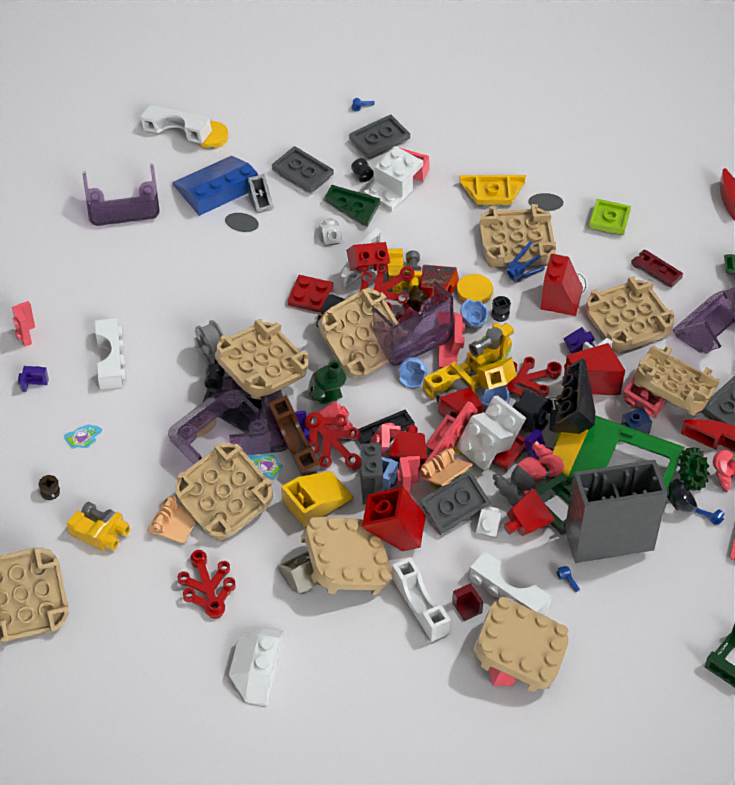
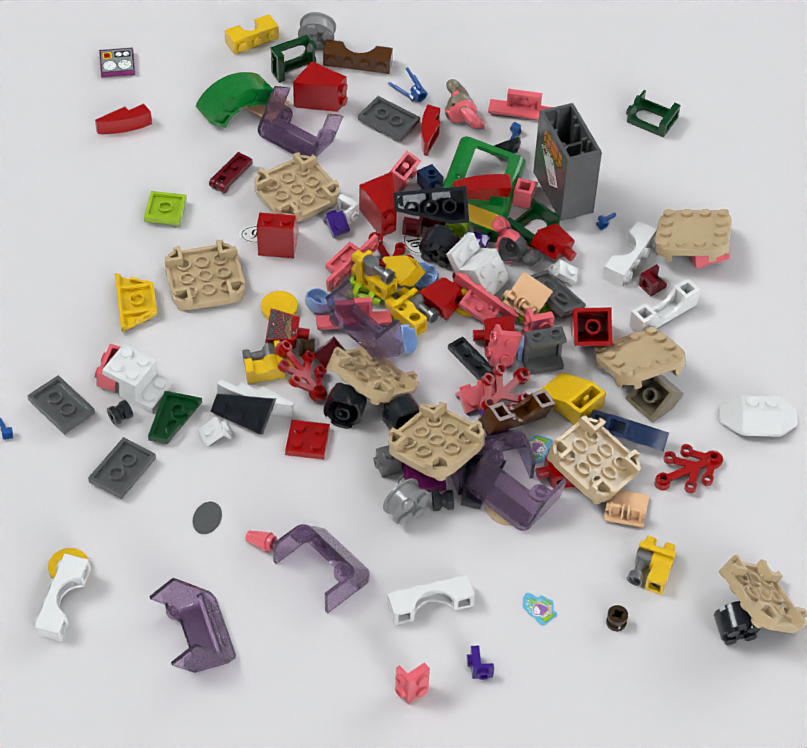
camera: 100 degrees left, 0 degrees up
(169, 293) = (347, 568): none -> clear purple windscreen
(203, 250) = (261, 539): none -> coral cone
(215, 184) = (152, 545): blue slope -> none
(258, 535) = (633, 430): none -> dark blue slope
(259, 193) = (169, 500): dark grey slope -> none
(318, 353) = (399, 411): none -> black brick
(326, 383) = (442, 389): dark green piece -> none
(339, 254) = (245, 411): none -> black wing
(367, 256) = (268, 379): red brick -> none
(500, 308) = (306, 280): black wheel -> none
(516, 271) = (253, 270): blue plant -> none
(527, 344) = (341, 263): none -> coral bracket
(546, 201) = (143, 262): dark grey sticker -> none
(601, 446) = (487, 185): none -> red slope
(675, 380) = (385, 145): tan plate -> none
(693, 468) = (480, 134): dark green gear -> none

